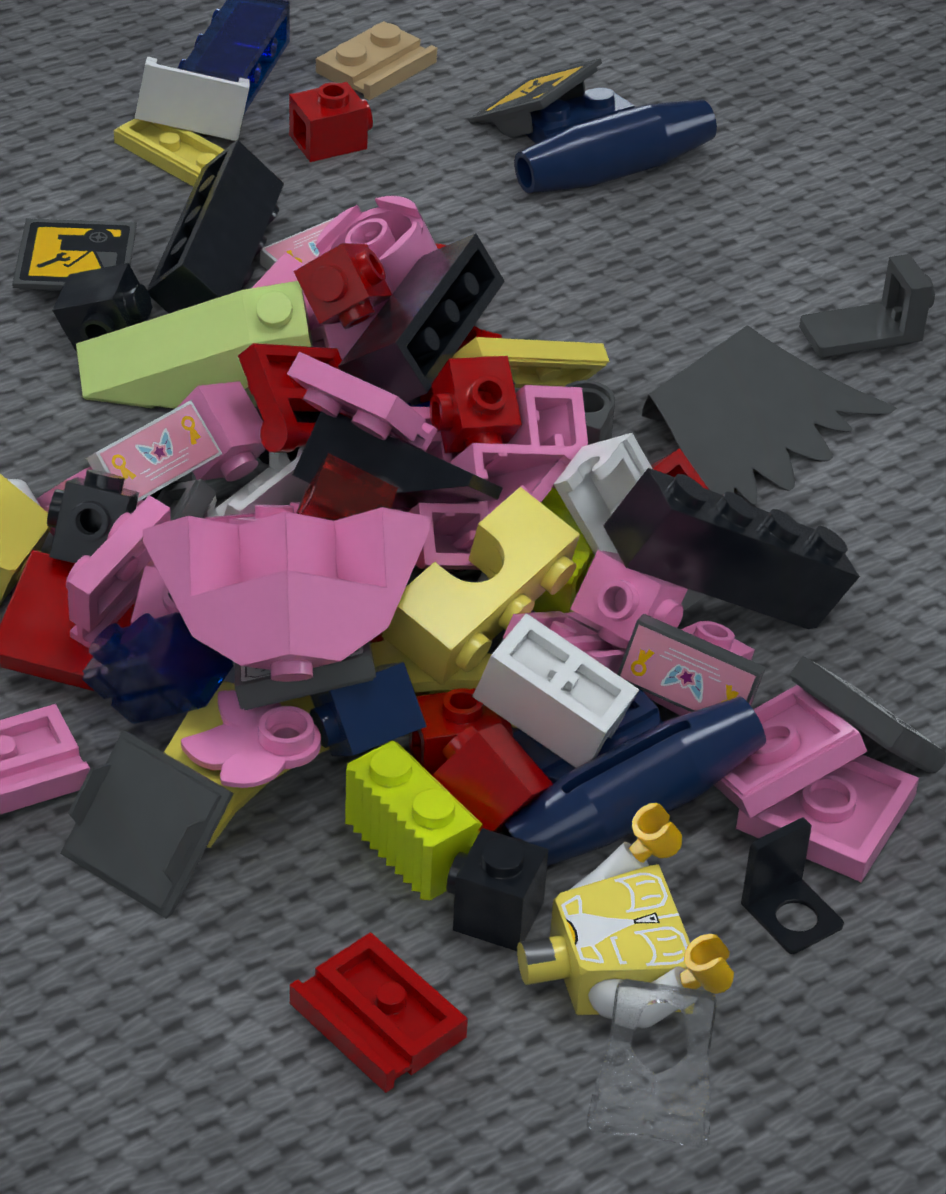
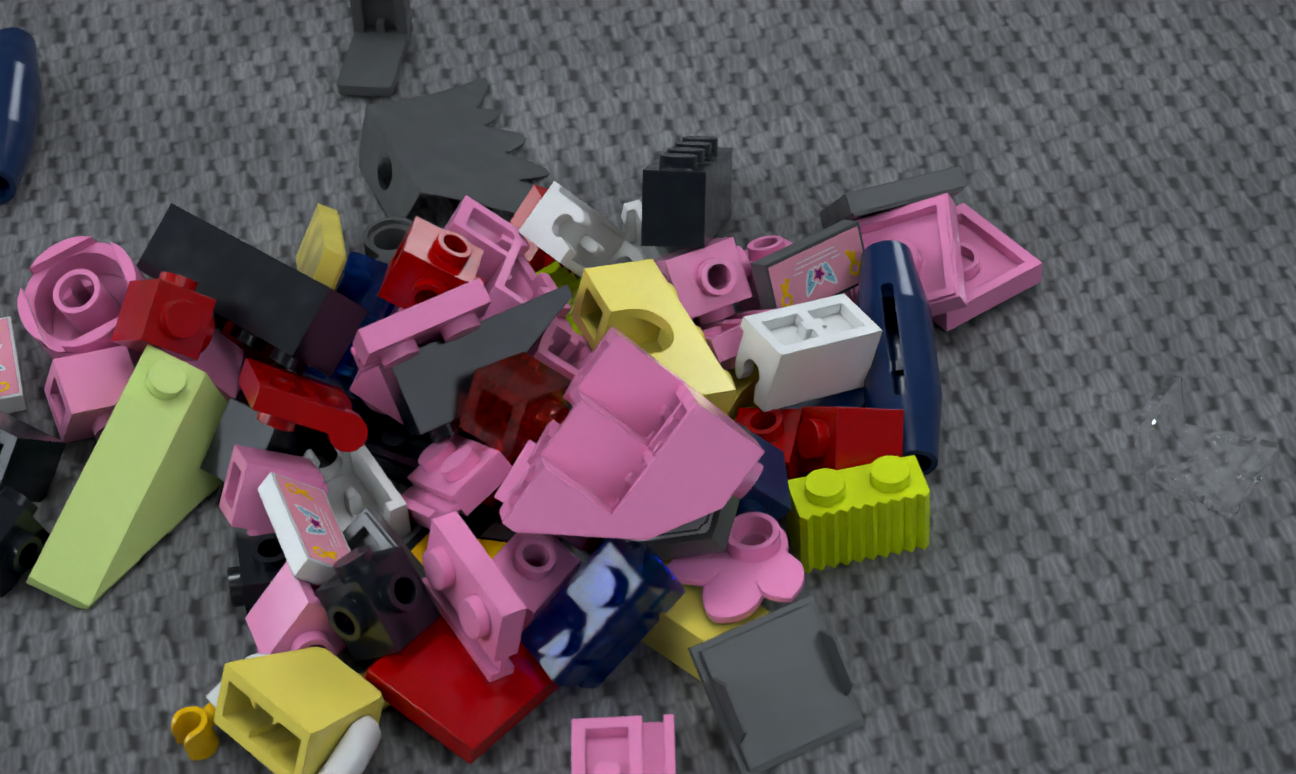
camera: 60 degrees left, 0 degrees up
(378, 1011) = (1059, 601): red plate -> none
(498, 888) = (970, 479): black brick -> none
(625, 927) = (1059, 425): torso -> none
(776, 879) = (1021, 316): black bracket -> none

